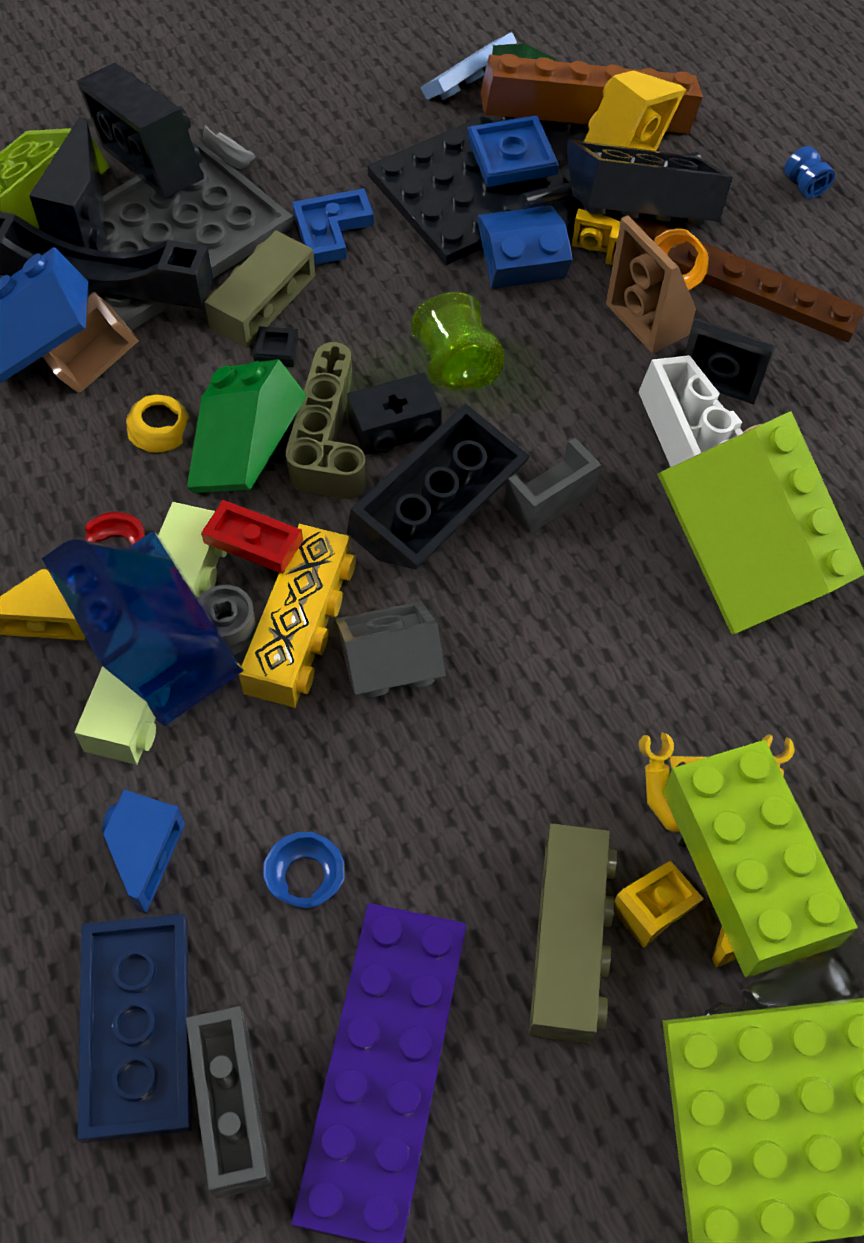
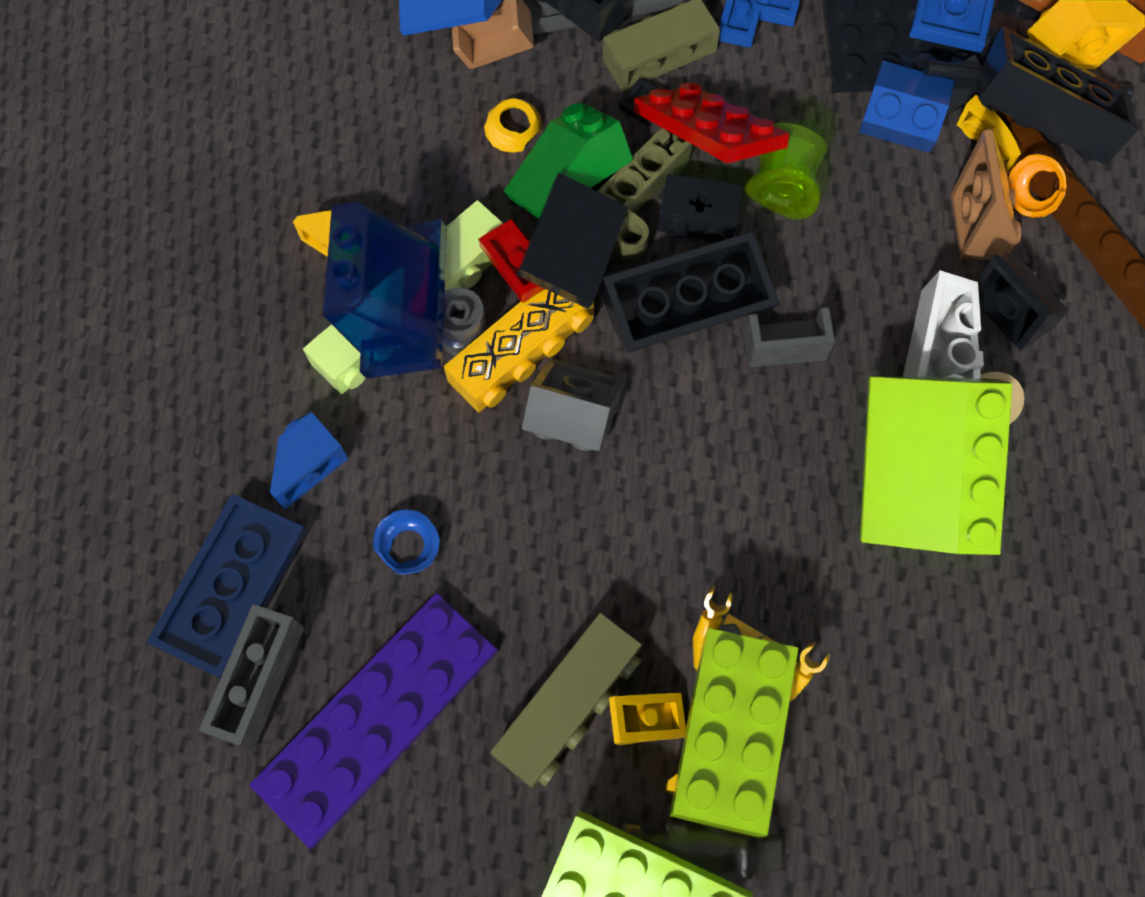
camera: 35 degrees right, 10 degrees up
(113, 525) = (422, 193): red piece -> none
(300, 490) = (572, 241): none -> black tile
(361, 328) = (711, 122): none -> red plate

